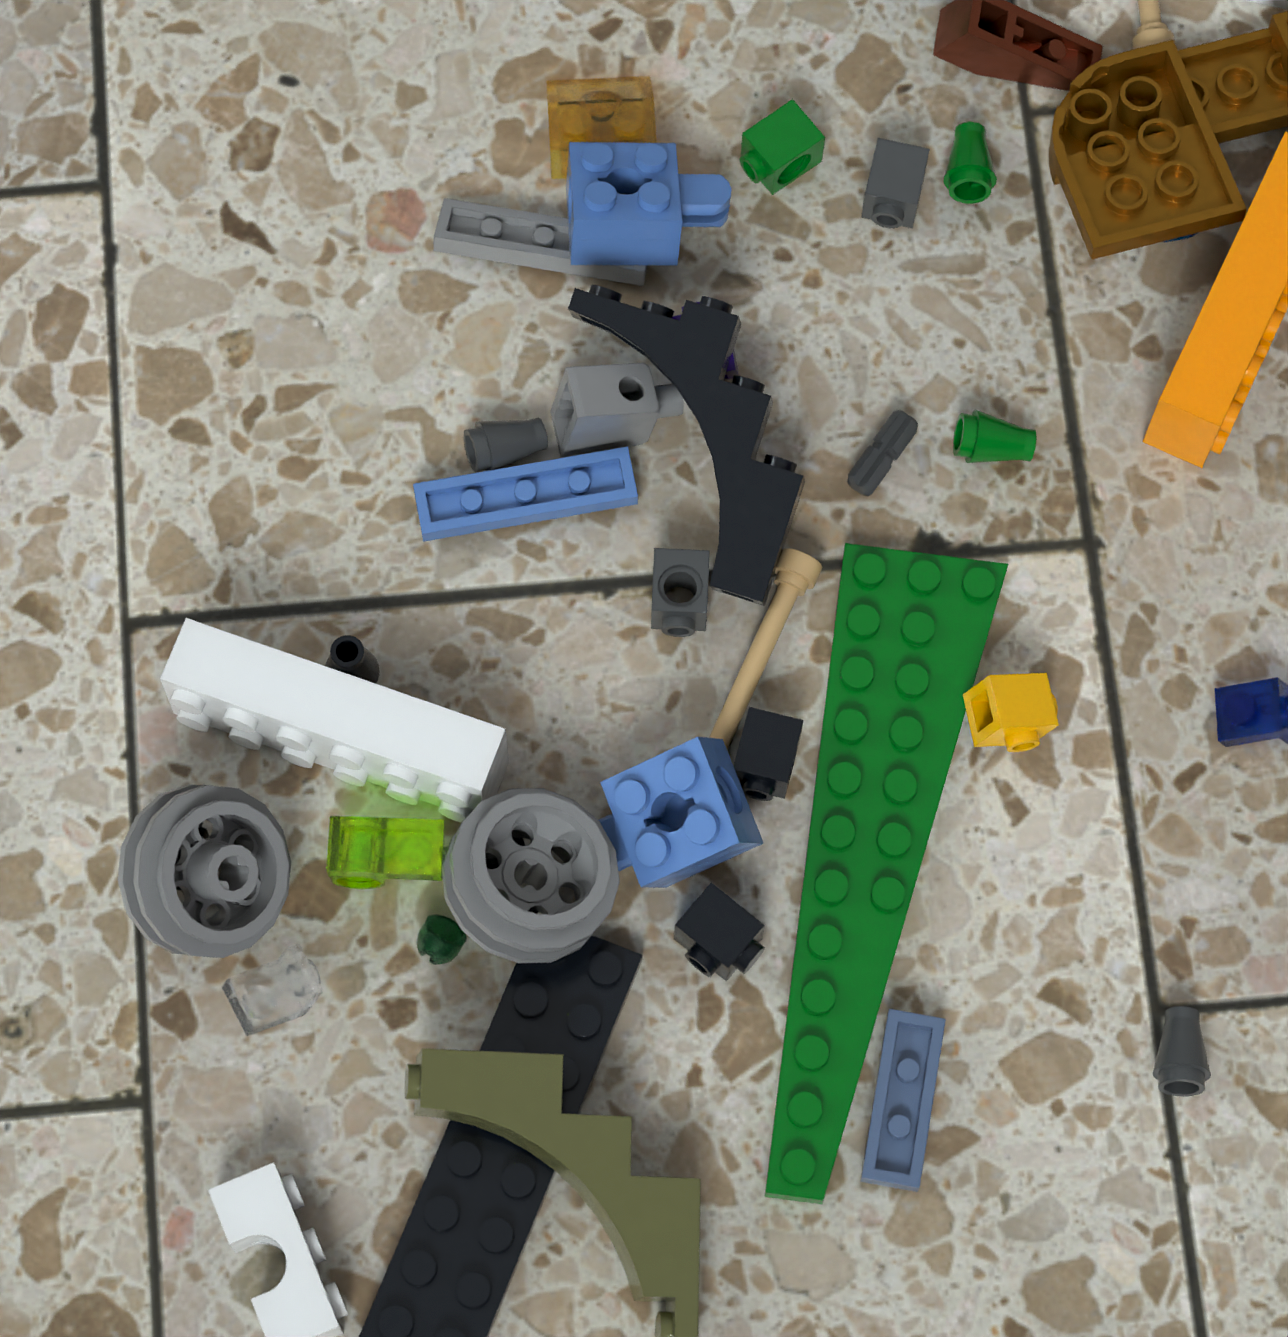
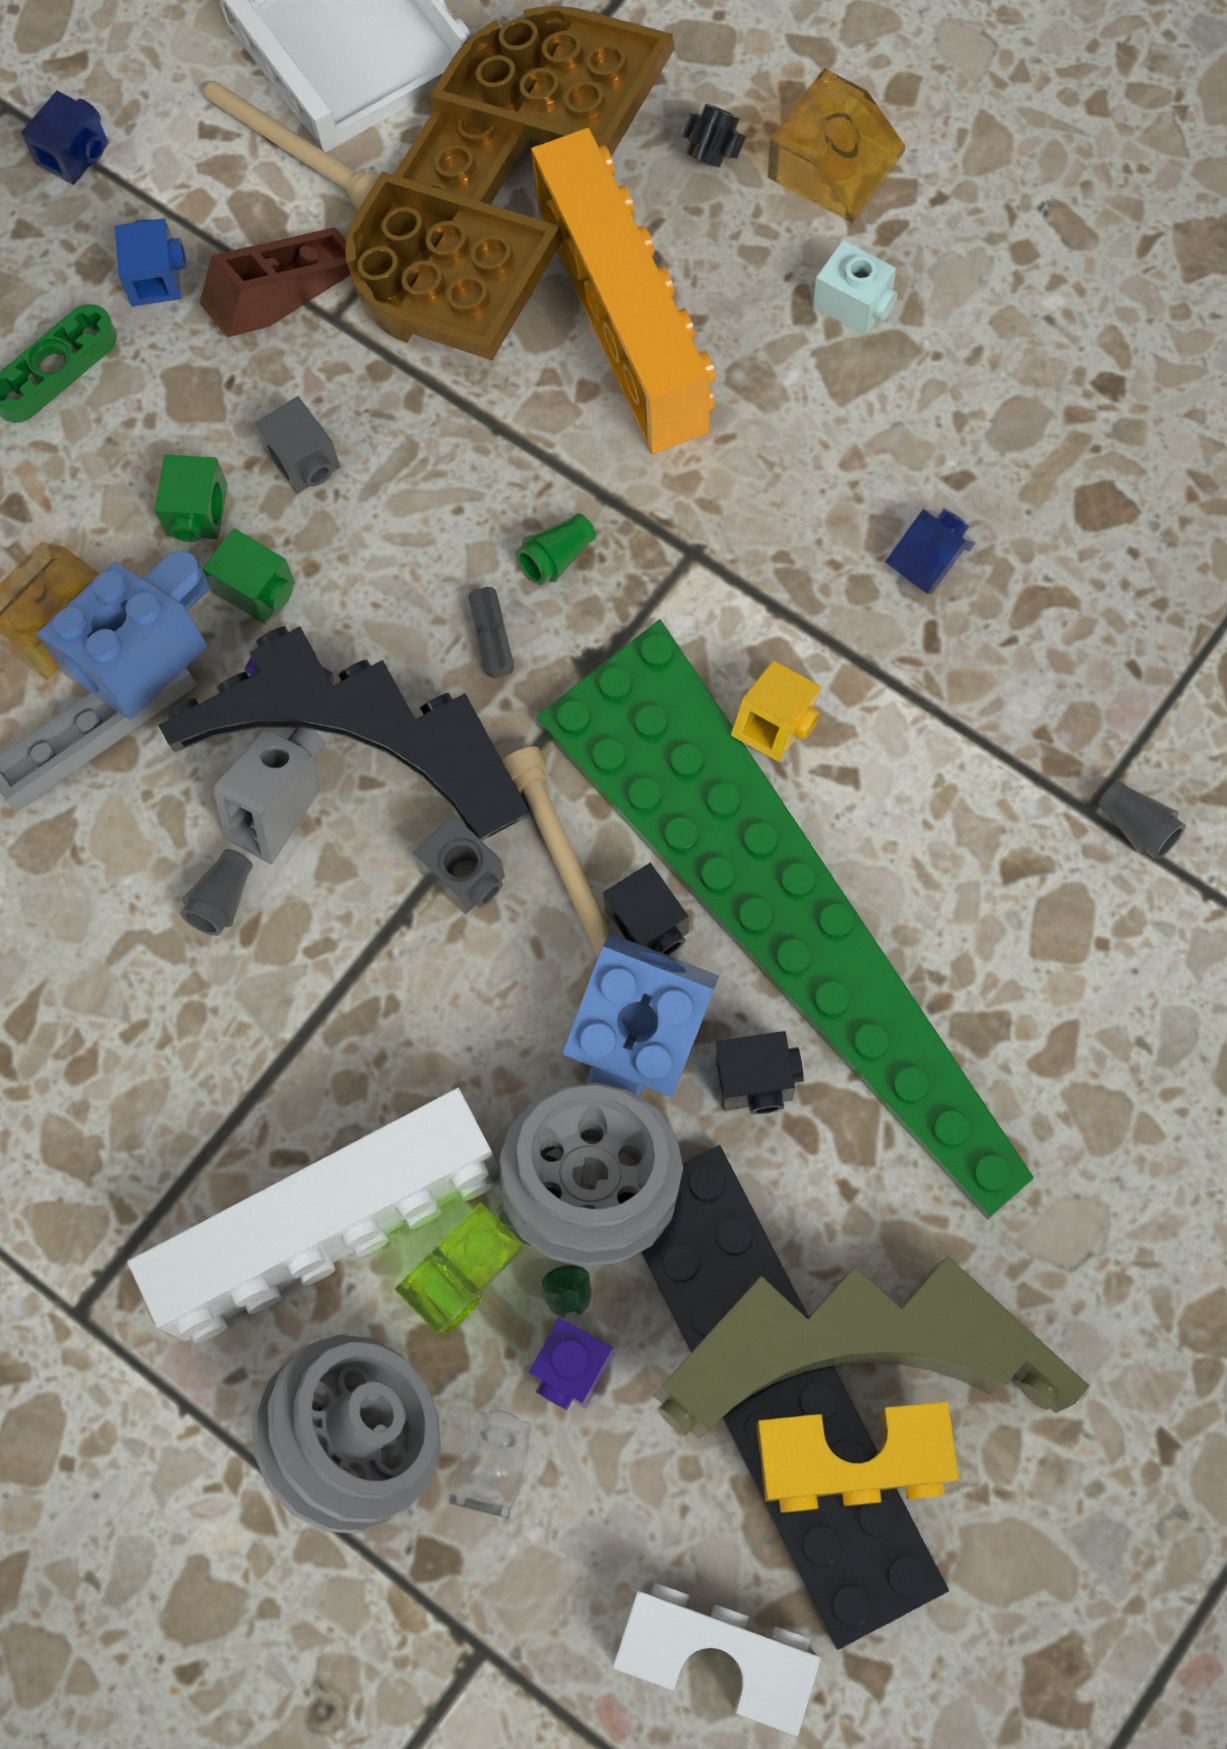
camera: 40 degrees left, 0 degrees up
(351, 657) = (271, 1151): black cone -> none
(388, 986) = (570, 1365): none -> dark purple brick
(525, 494) = (273, 913): medium blue plate -> none
(534, 1271) = (913, 1455): none -> yellow arch
(760, 244) = (249, 576): none -> green brick
(903, 1100) = (1006, 1050): sand blue plate -> none
(970, 166) = (336, 386): green cone -> none

